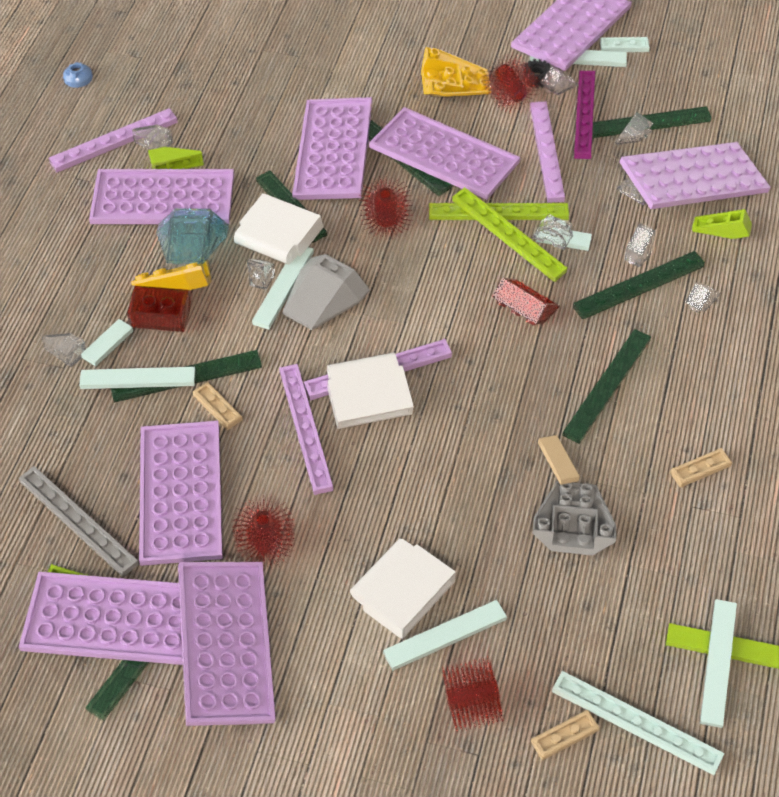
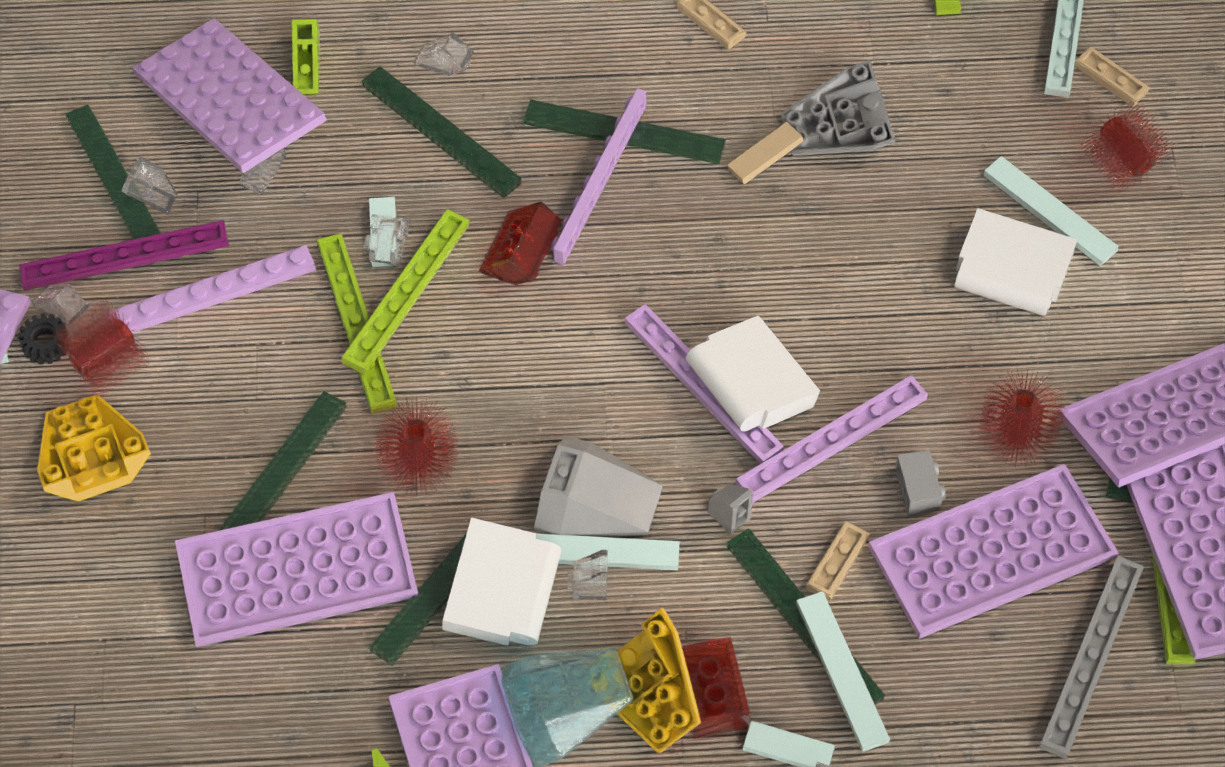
camera: 110 degrees left, 5 degrees up
(249, 464) = (919, 482): none -> light grey brick
(276, 352) = (731, 507): none -> light grey slope
(445, 152) = (263, 414): lavender plate -> none
(568, 354) = (595, 184): none -> lavender plate
(640, 245) = (384, 132): clear slope -> none

